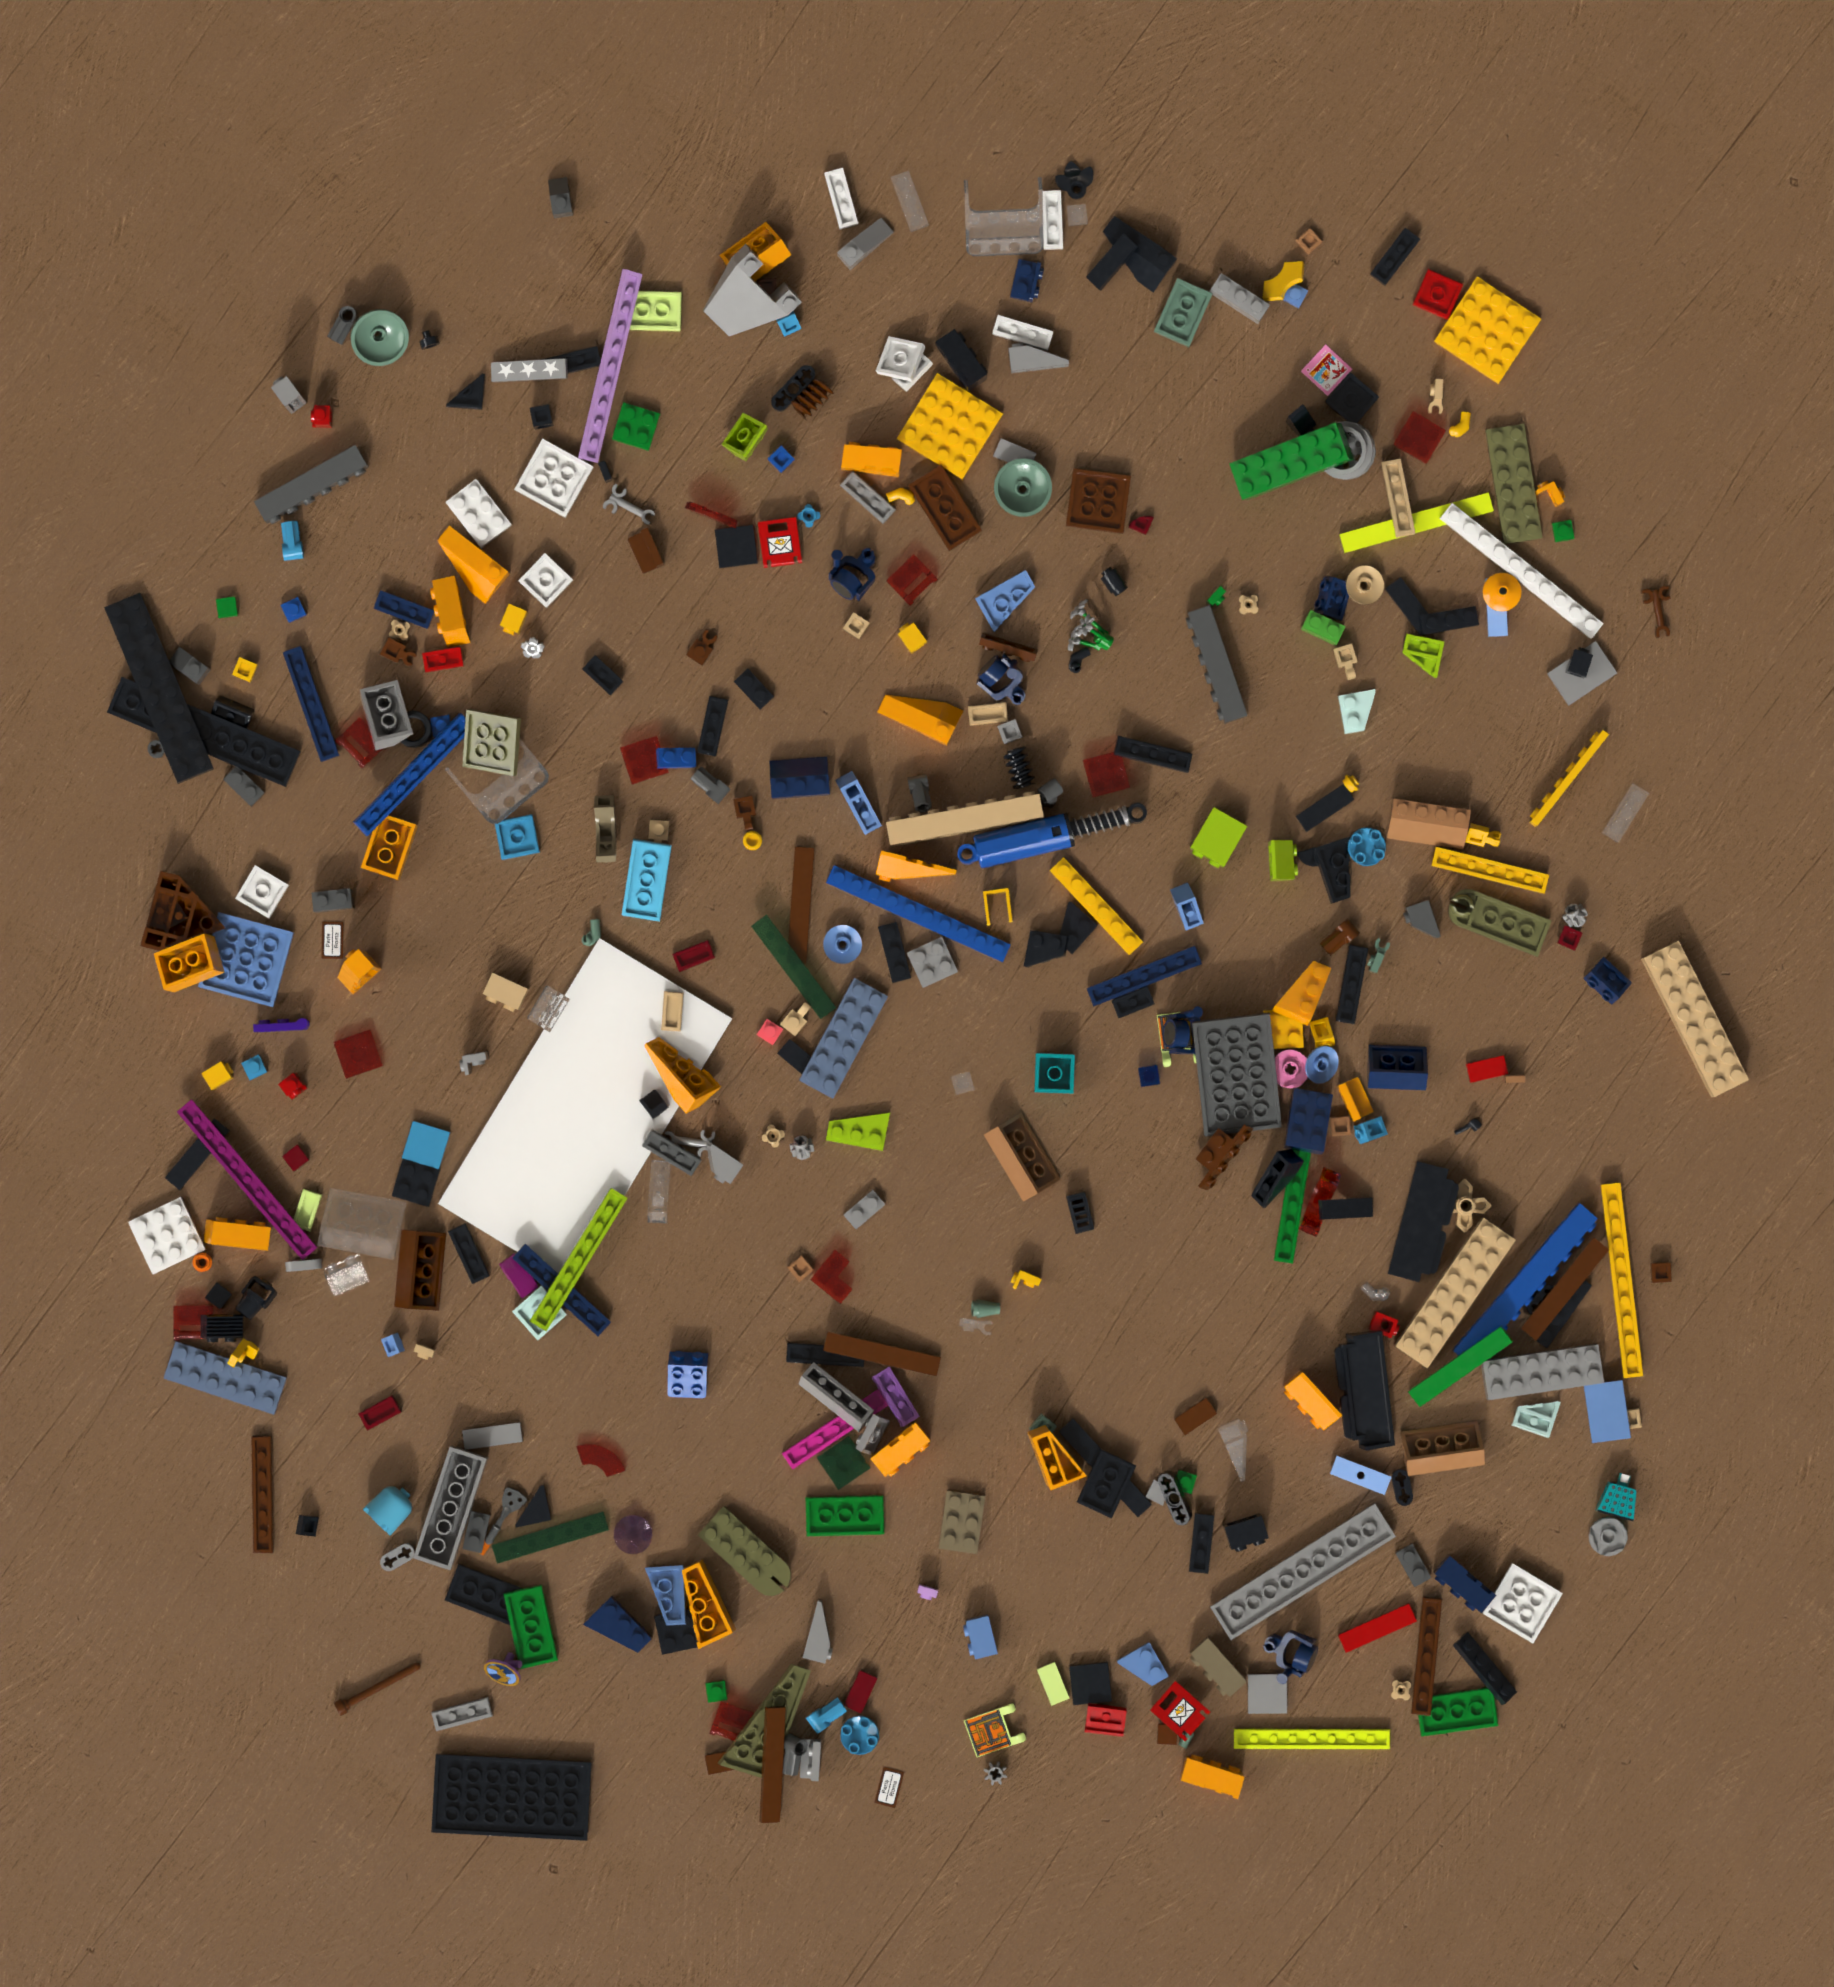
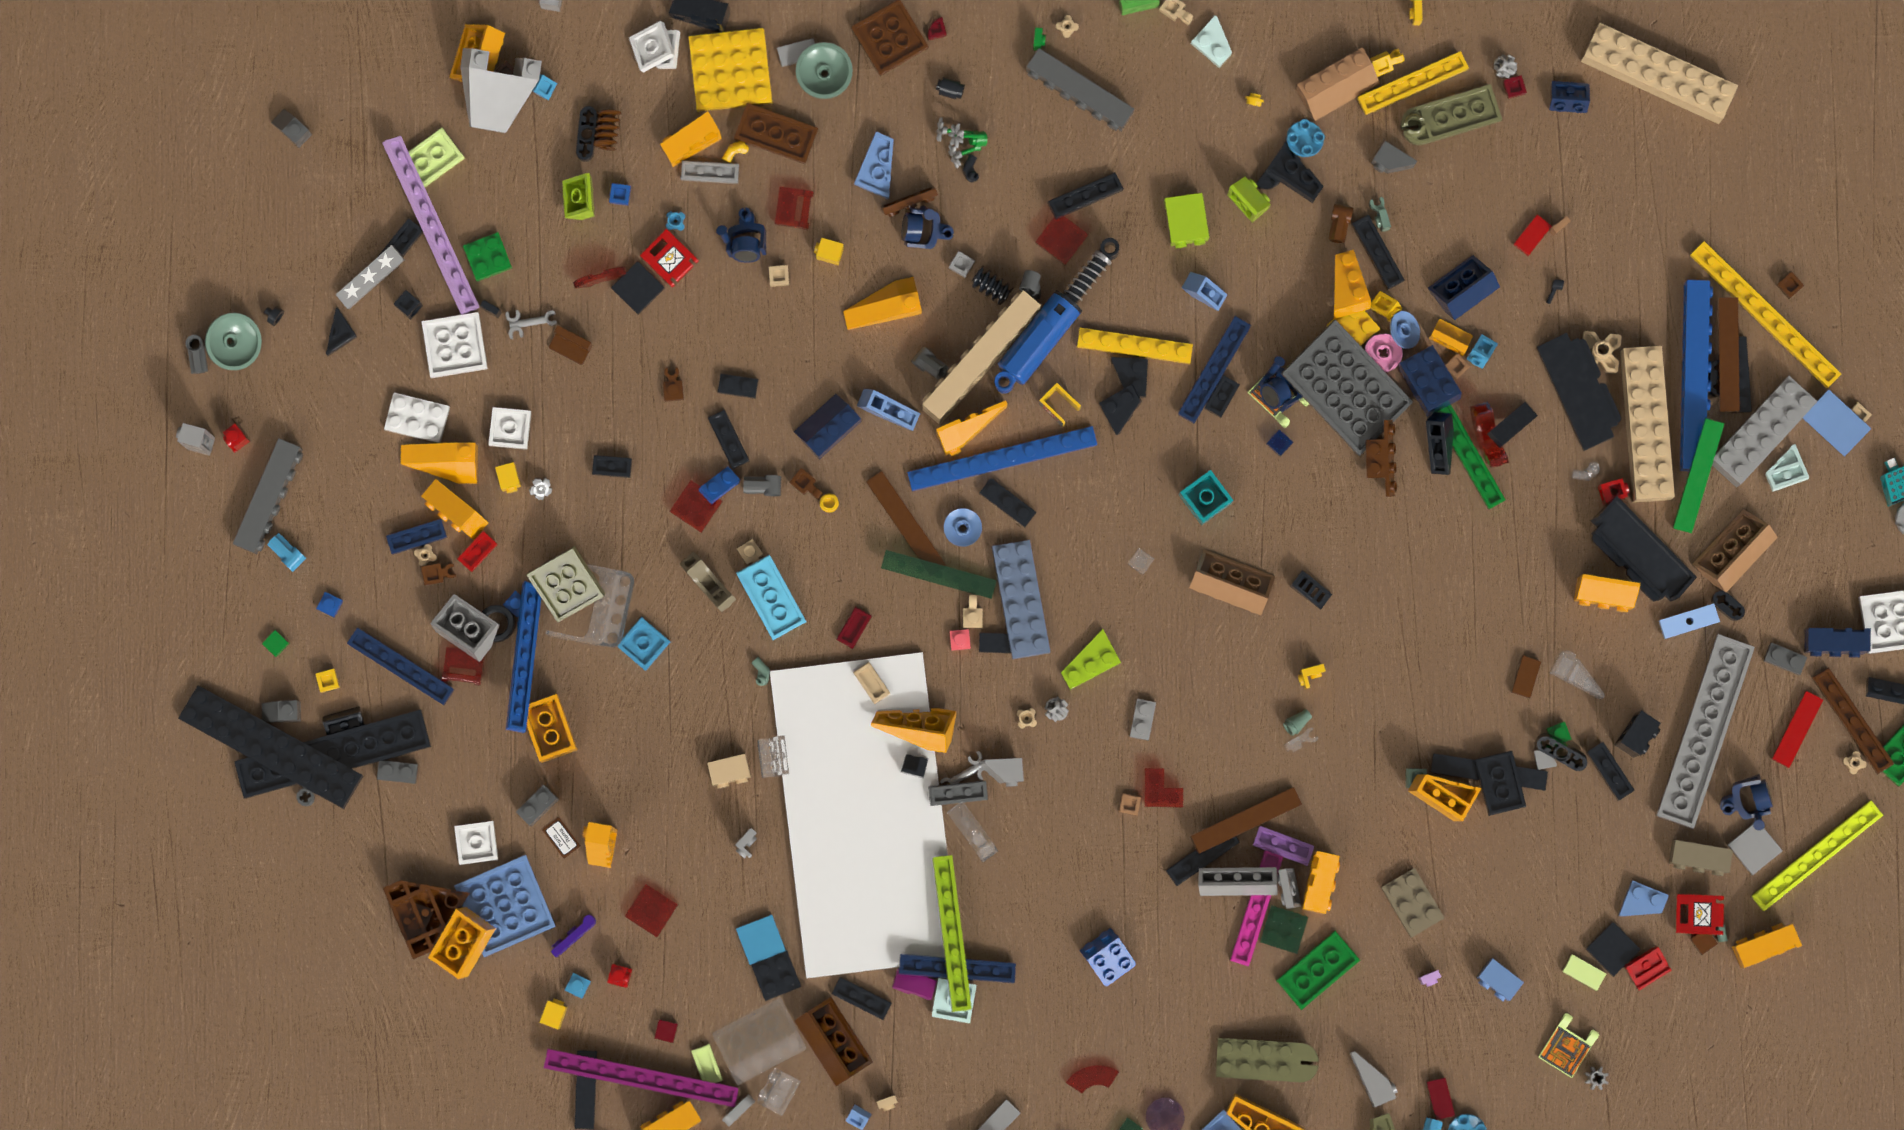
camera: 40 degrees left, 5 degrees down
(932, 962) = (1043, 487): light grey plate -> none
(988, 714) = (934, 264): tan tile -> none
(1324, 808) = (1249, 134): black tile -> none

